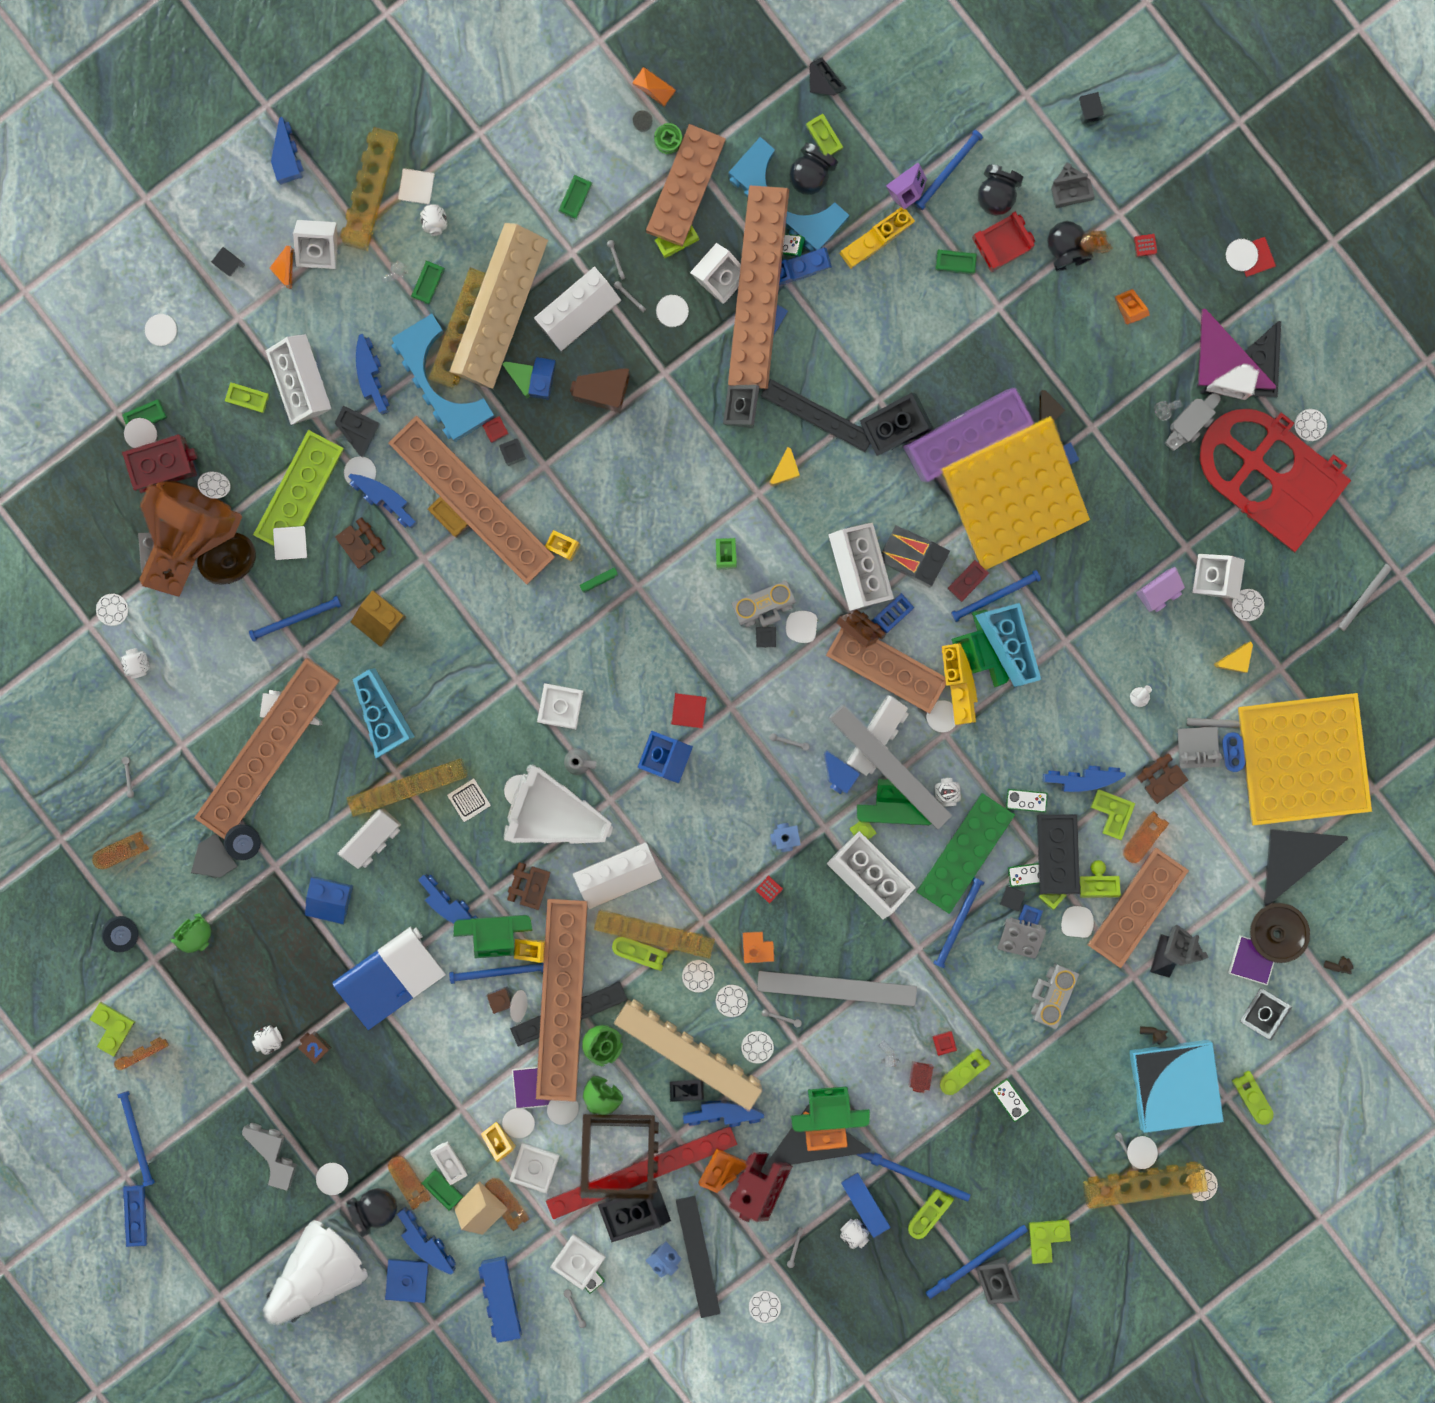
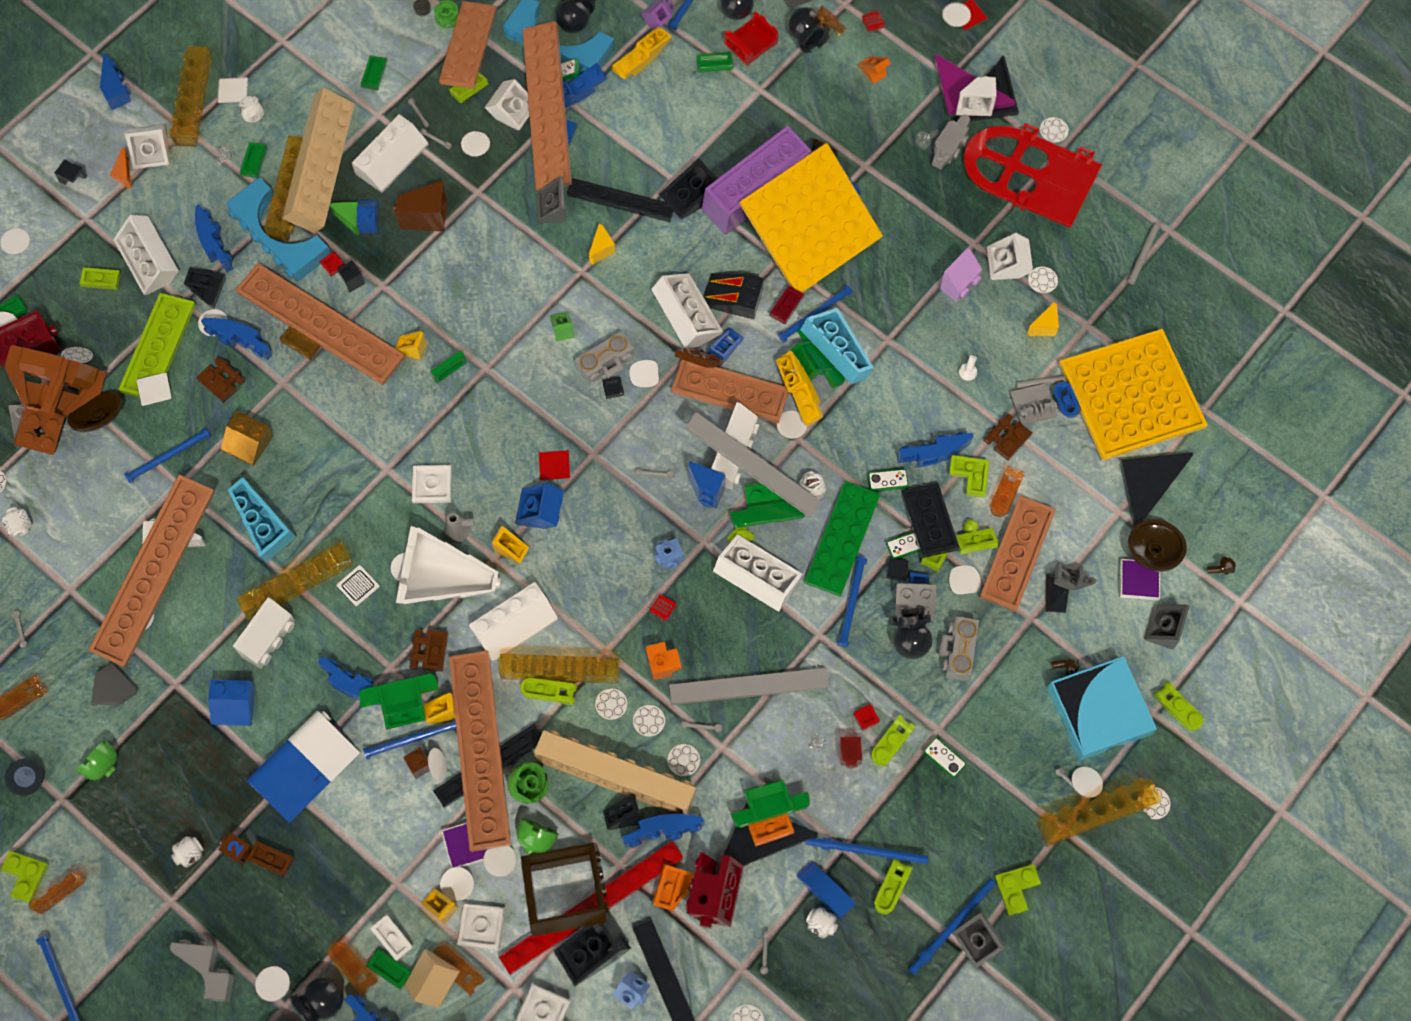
camera: 15 degrees left, 20 degrees down
(242, 842) = (139, 664): black wheel -> none
(345, 1063) = (270, 859): none -> reddish brown plate
(628, 794) = (509, 545): none -> yellow slope
(1009, 974) = (912, 637): none -> black tile

